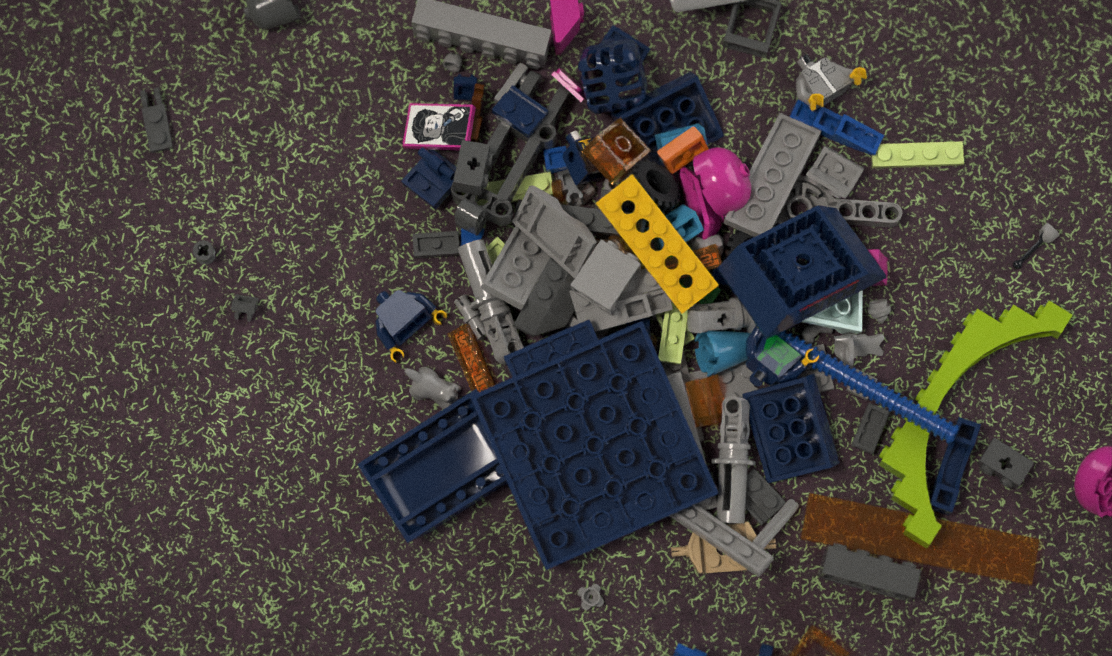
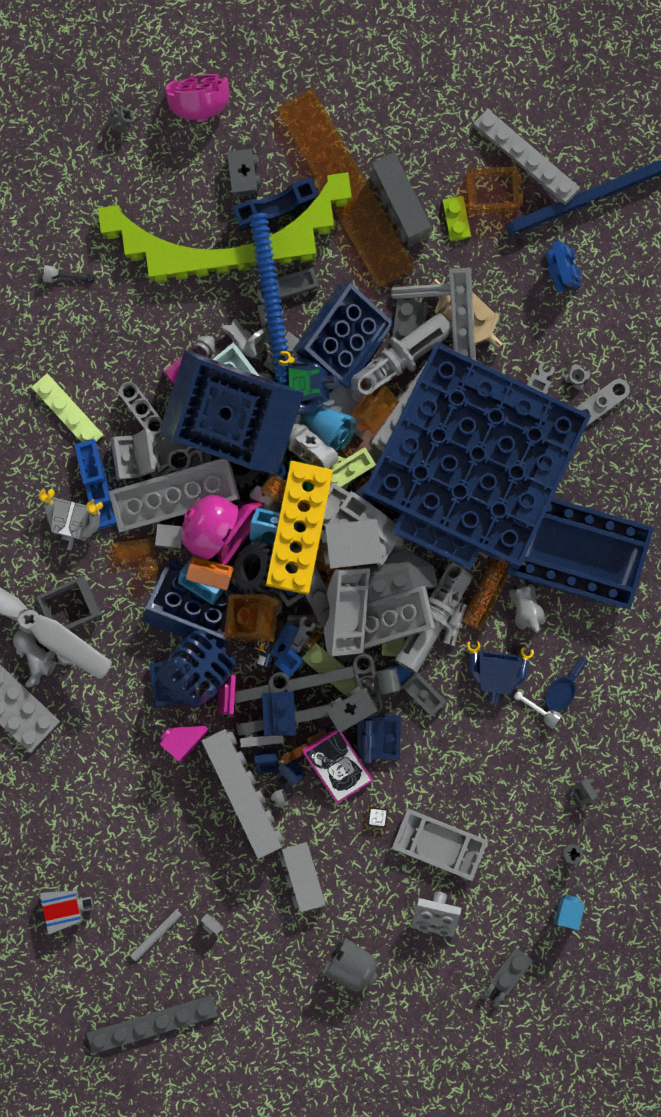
camera: 125 degrees left, 5 degrees up
(160, 207) = (569, 912): none -> dark azure brick
(252, 103) = (436, 916): none -> light grey plate
(305, 155) = (439, 844): none -> light grey slope
(327, 329) = (551, 717): none -> hinge
(341, 359) = (563, 689): none -> dark blue piece
(370, 126) = (377, 817): none -> tile
(375, 27) = (302, 877): none -> light grey brick
(490, 73) = (266, 763): none -> dark blue tile
(552, 596) = (603, 400): none -> light grey plate
(611, 557) = (539, 381): none -> light grey plate
(730, 110) = (147, 568): none -> clear orange plate
(743, 146) = (169, 537): none -> light grey brick
(754, 112) = (133, 551): none -> clear orange plate
(814, 612) = (456, 218): none -> lime plate

